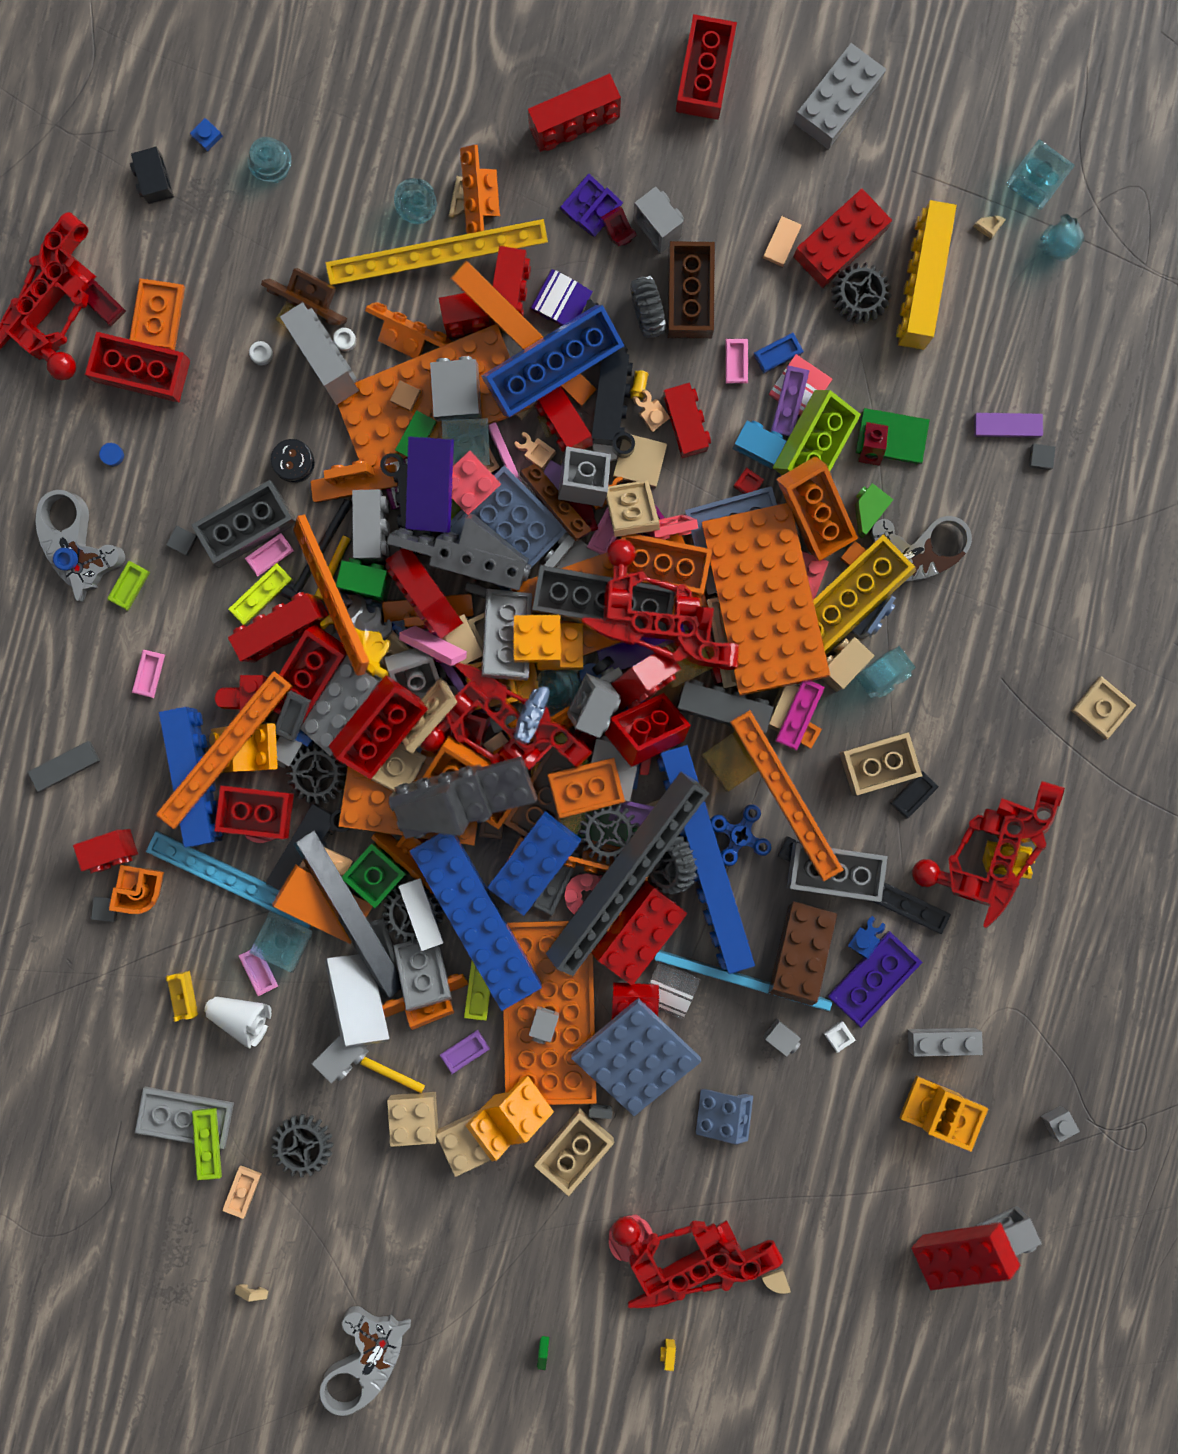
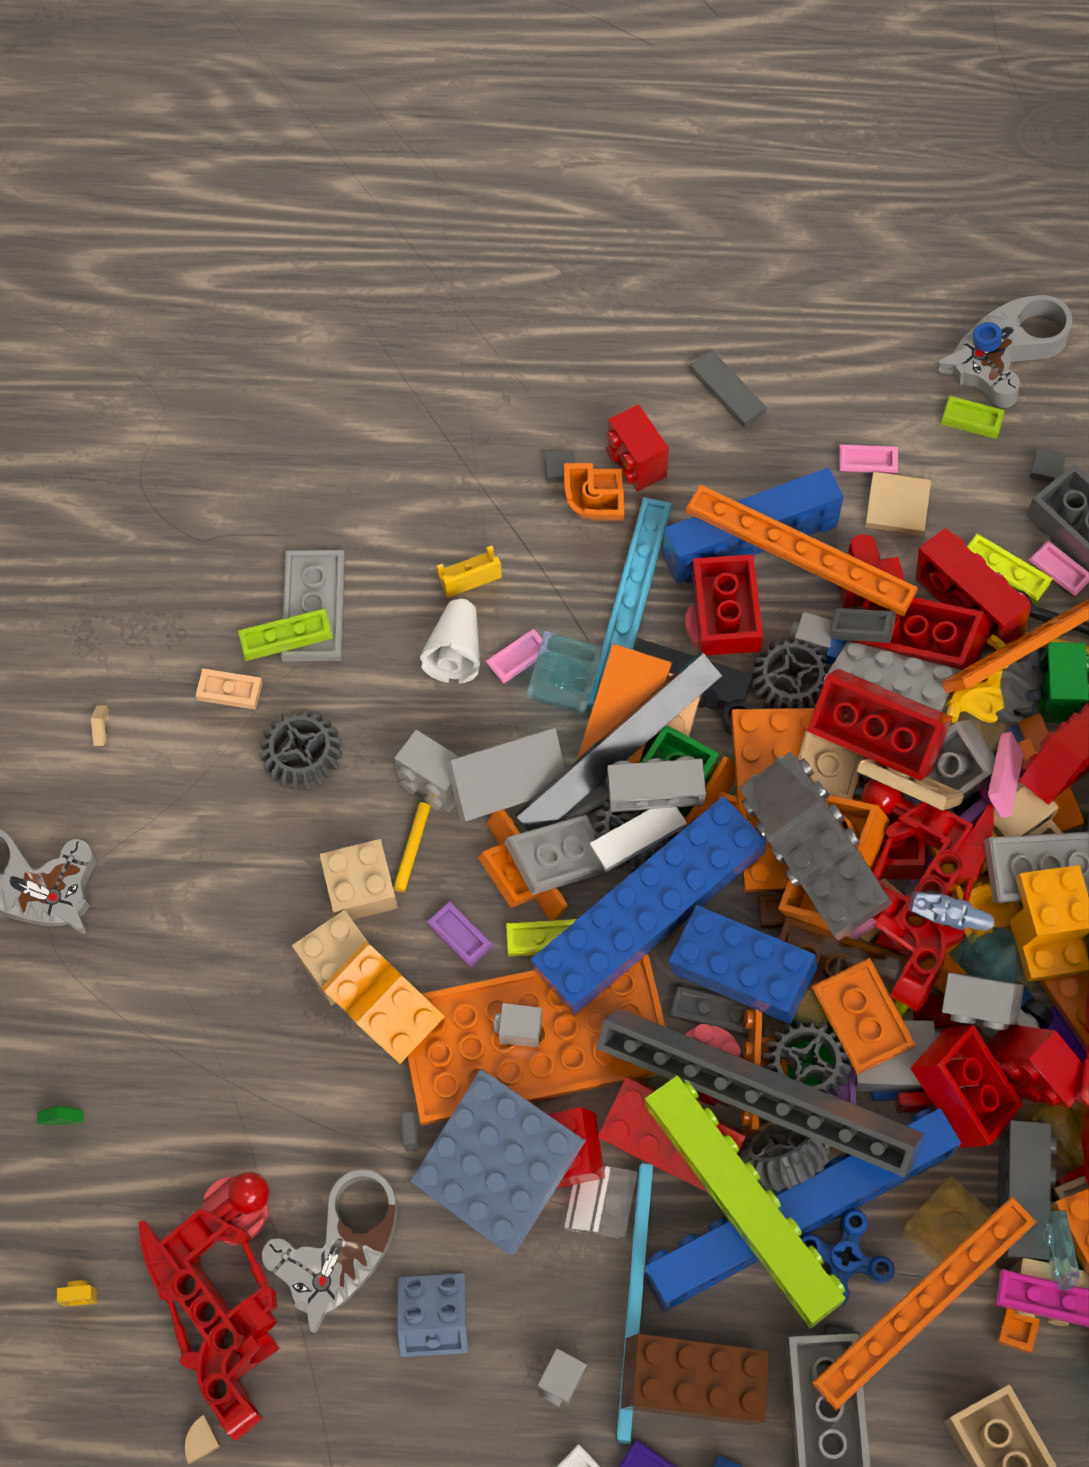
camera: 85 degrees right, 20 degrees down
(190, 660) = (898, 503): none -> tan tile
(257, 753) = (799, 591): light orange bracket -> none
(388, 896) = (656, 784): none -> light grey brick
(573, 1151) = (349, 1102): tan brick -> none
(686, 1180) = (332, 1274): none -> light grey animal
(700, 901) = (744, 1201): none -> lime brick
(783, 702) = (1063, 1260): none -> clear light blue plate

